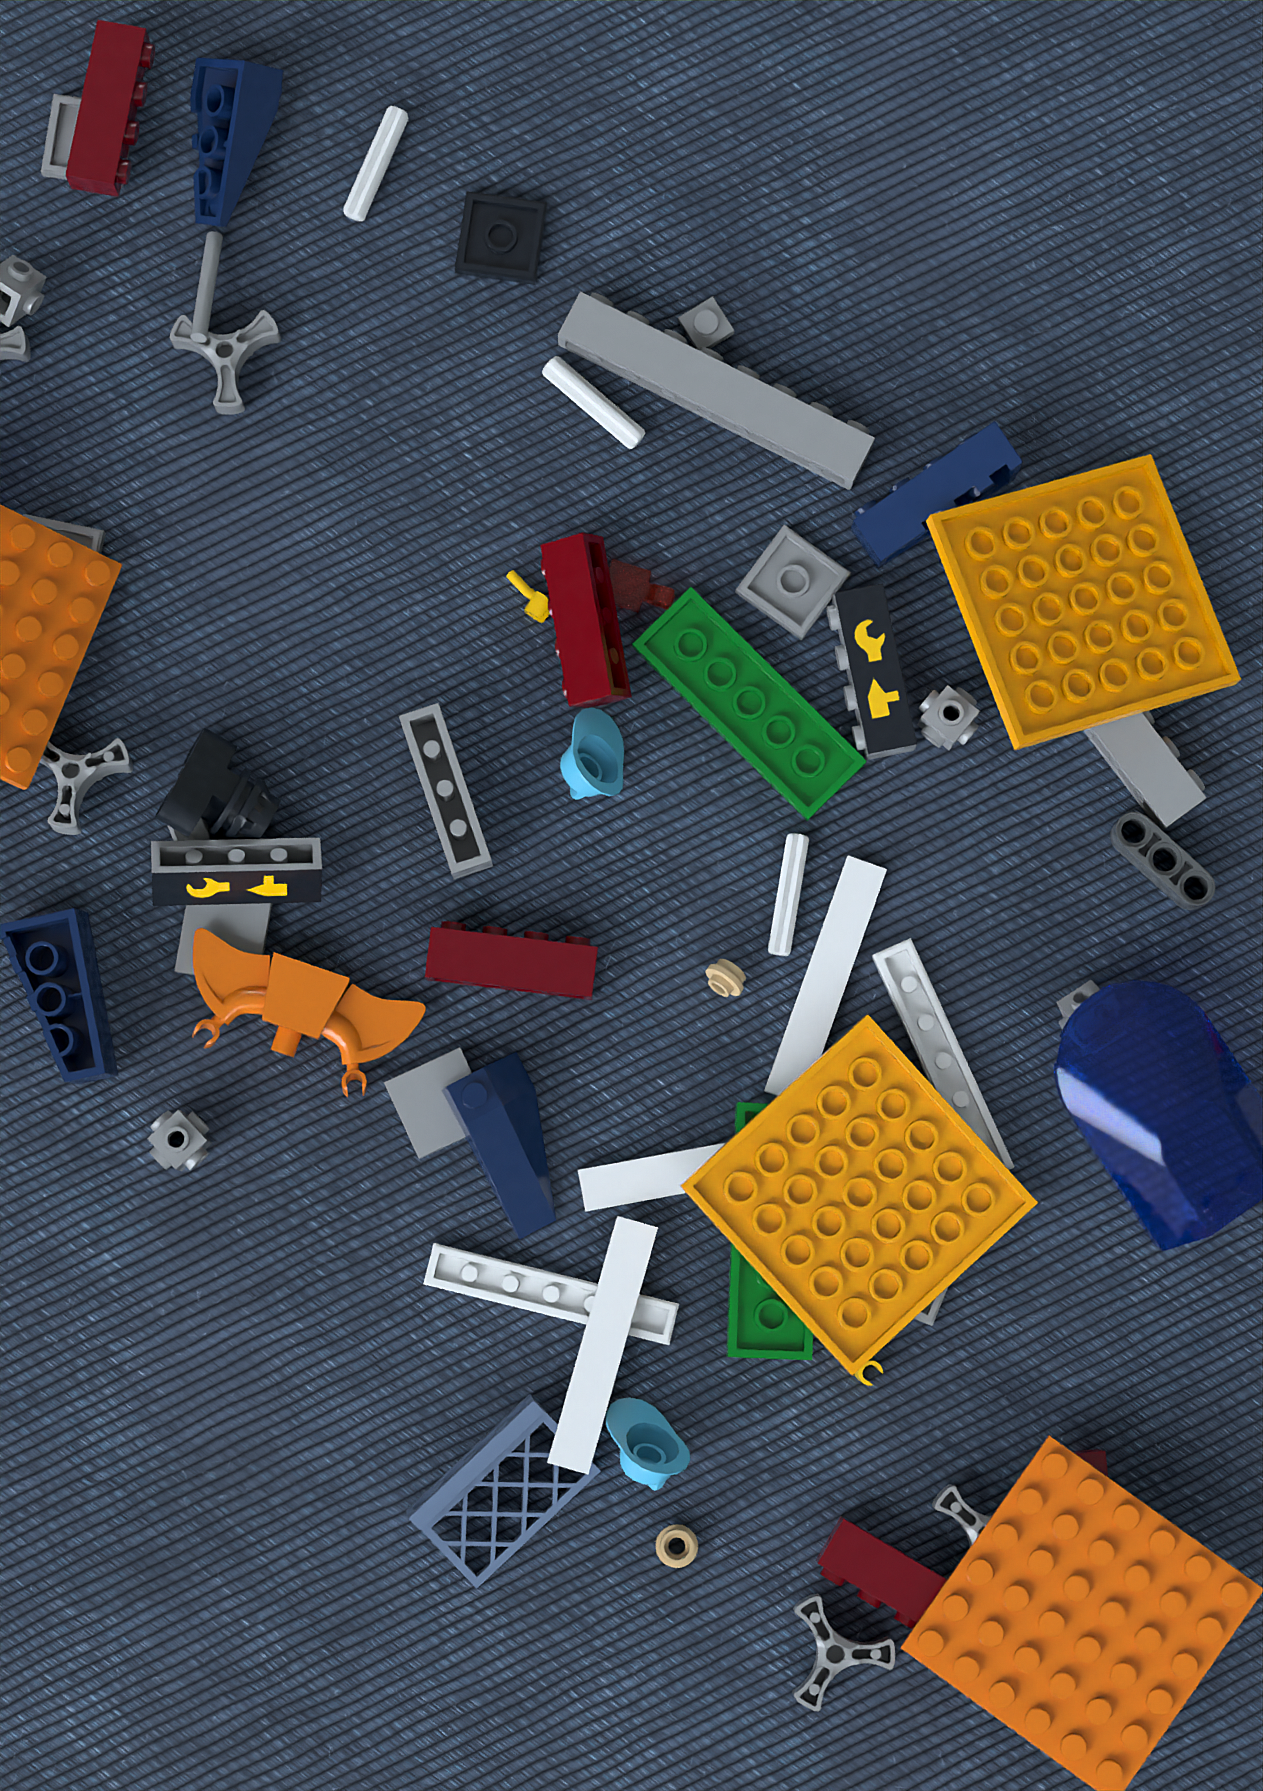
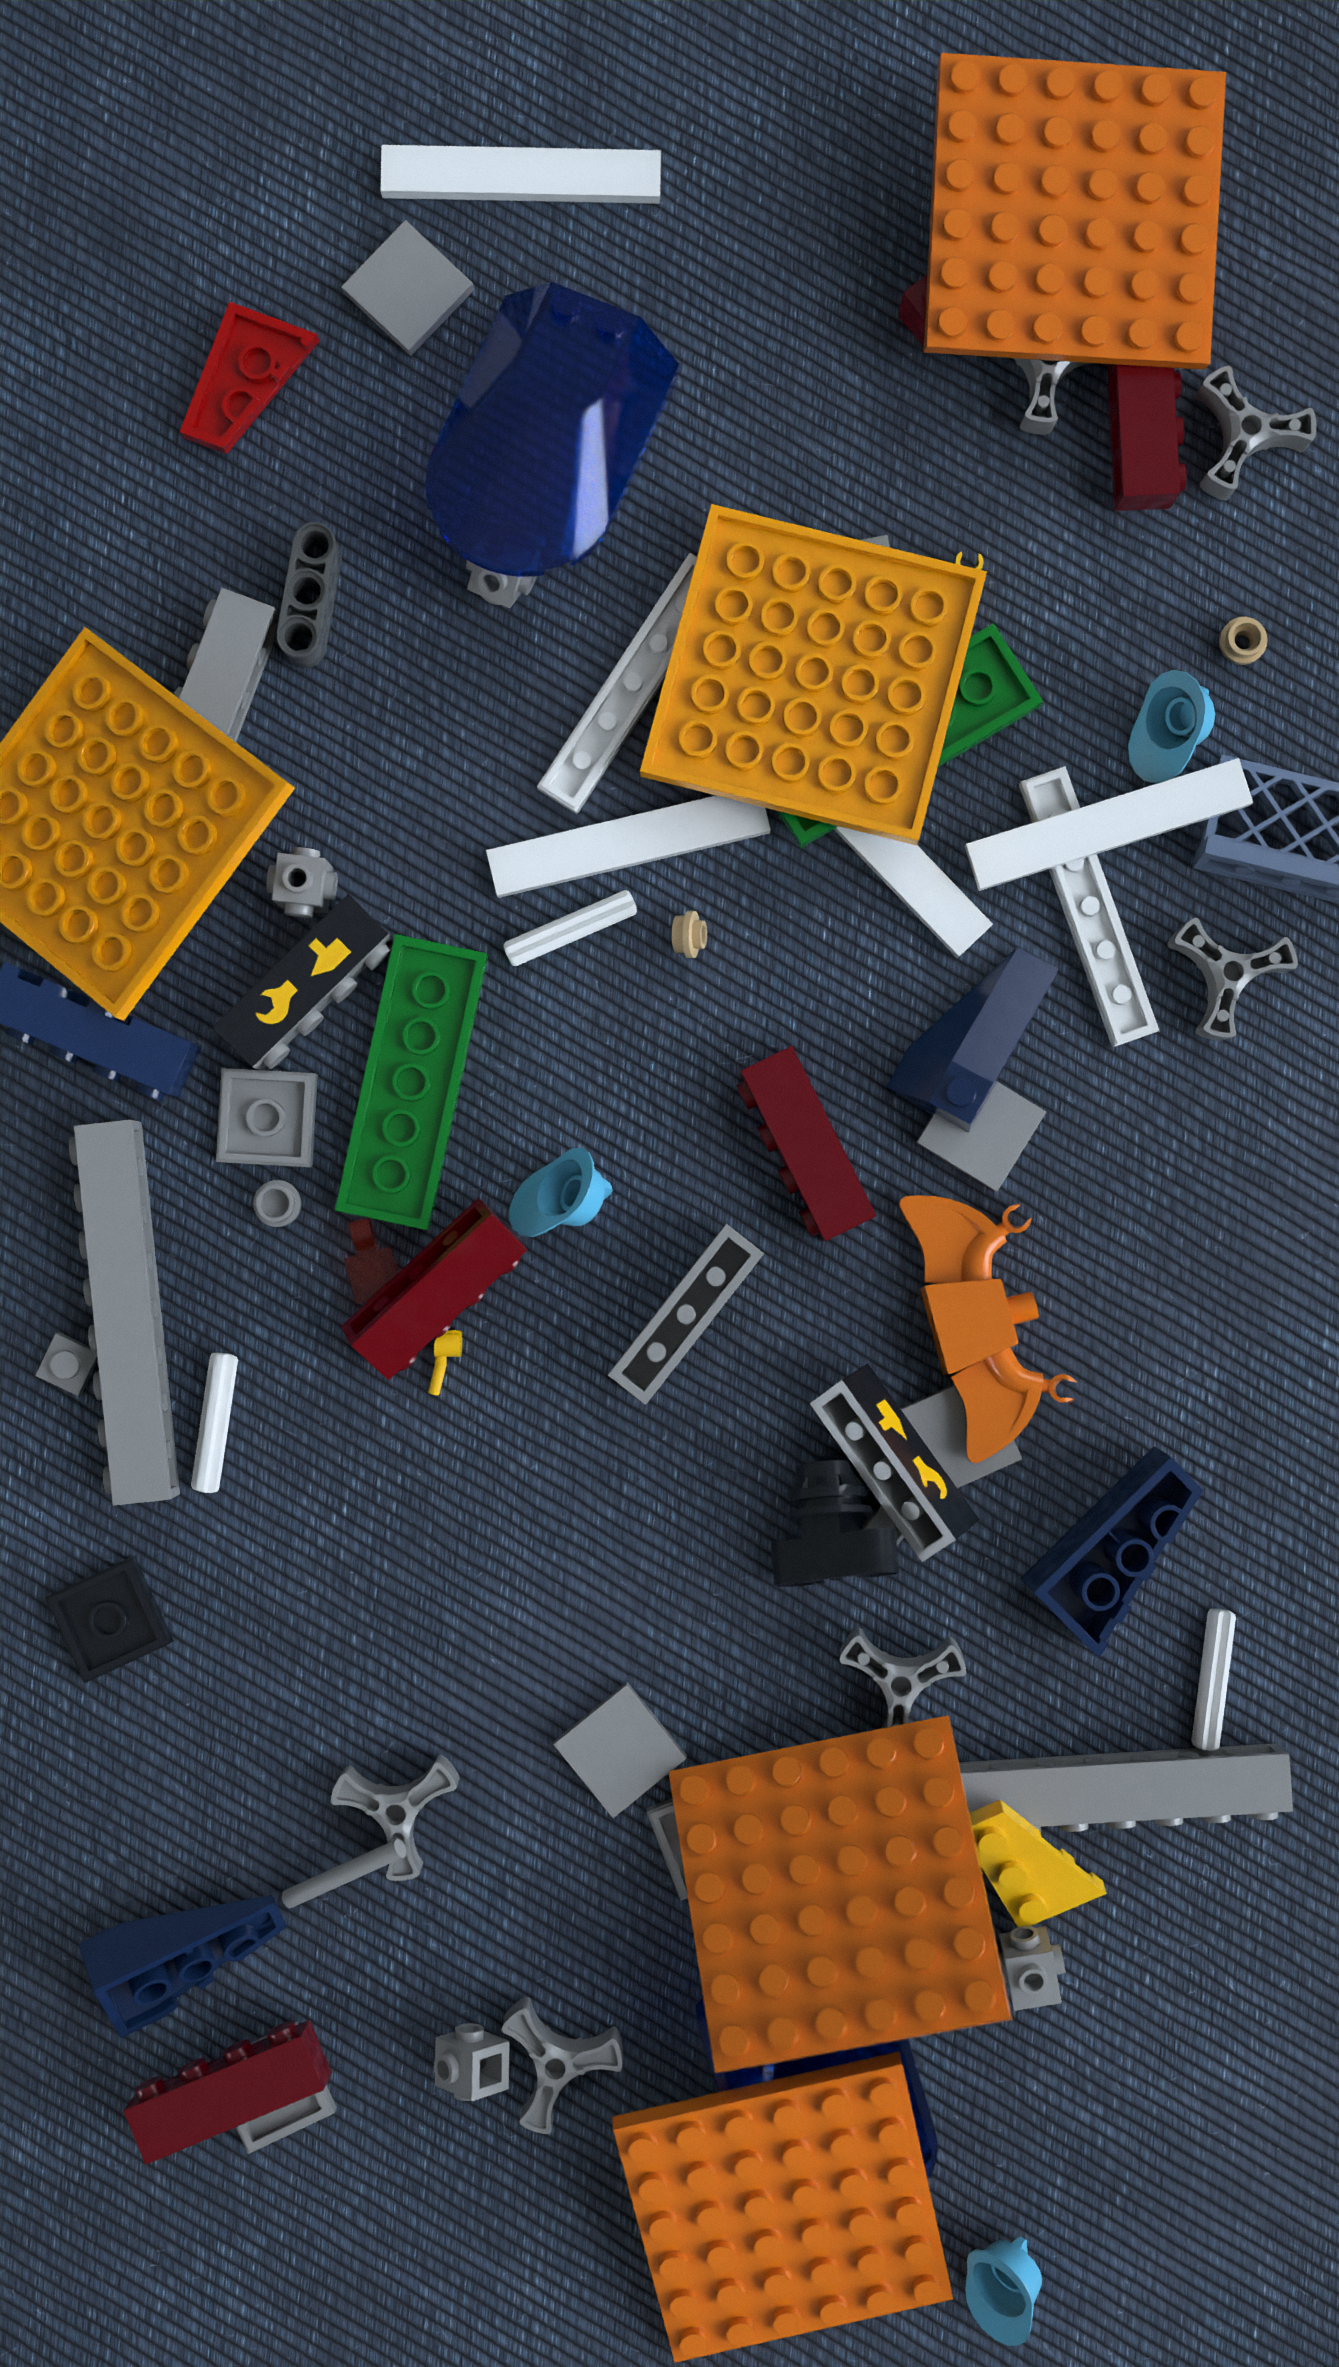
camera: 120 degrees left, 5 degrees up
(160, 540) = (620, 1750): none -> light grey tile
(194, 1145) = (1163, 1341): light grey brick -> none
(375, 163) = (113, 1790): white axle -> none
(431, 1363) = (1227, 973): none -> light grey piece
(724, 549) = (277, 1203): none -> light grey plate

